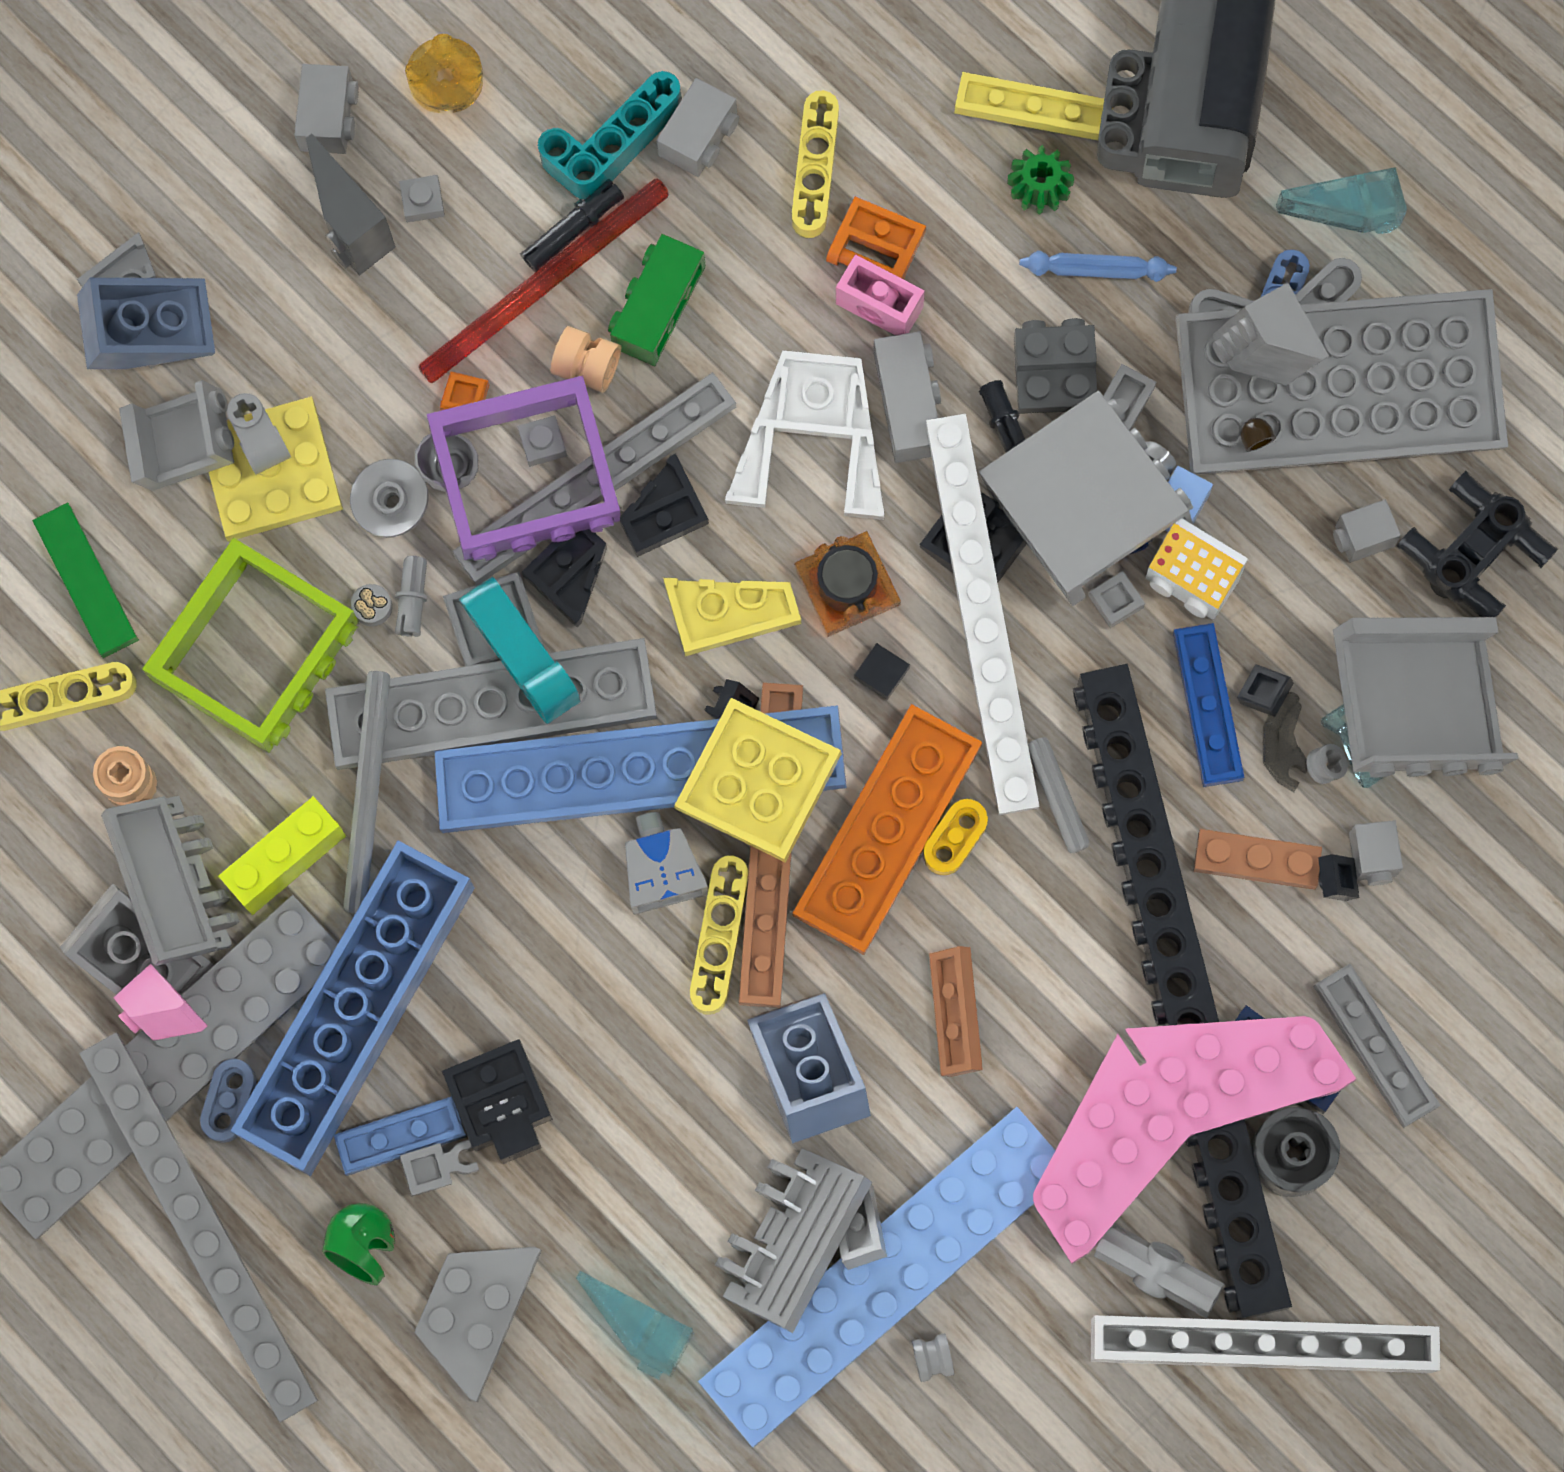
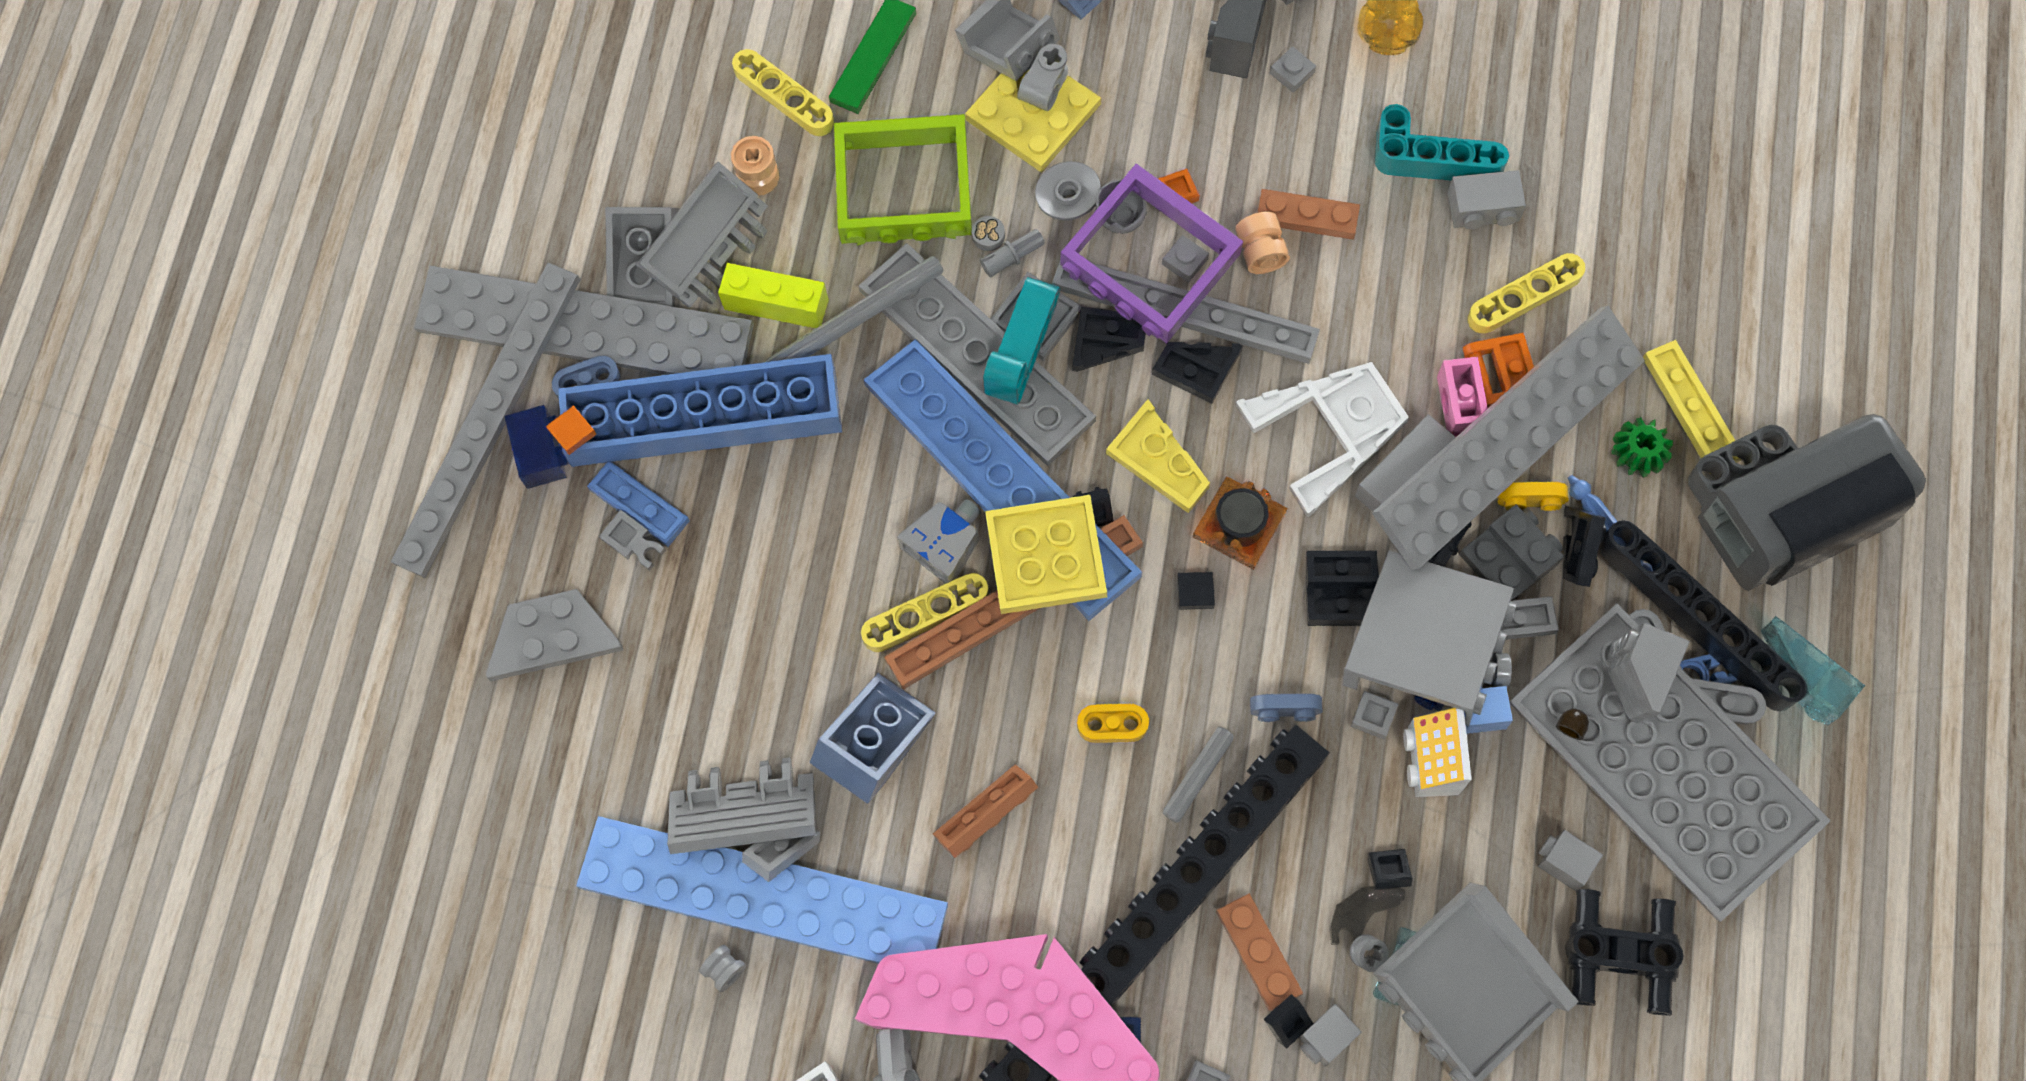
camera: 55 degrees right, 5 degrees down
(156, 1007) = (612, 287): bright pink slope -> none
(265, 1195) = (534, 448): none -> clear blue brick
(288, 1146) = (571, 430): none -> orange tile
(352, 1235) = (547, 519): green helmet -> none
(499, 1101) = (703, 548): black piece -> none
(543, 280) = (1299, 181): clear red axle -> none
(572, 225) = (1351, 171): black pin -> none
(584, 295) = (1311, 213): none -> nougat plate
(645, 1332) = (607, 753): clear light blue slope -> none
(657, 299) = (1343, 259): green brick -> none
(887, 829) = (1084, 672): orange plate -> none
(951, 286) = (1508, 438): none -> light grey plate
(982, 614) = (1274, 641): white plate -> none
(1023, 297) = (1546, 495): none -> yellow plate
(1044, 685) = (1273, 706): none -> sand blue plate
(1094, 301) = (1582, 547): none -> black wing
(1208, 705) = (1347, 836): blue tile -> none
(1221, 264) = (1719, 618): none -> black beam

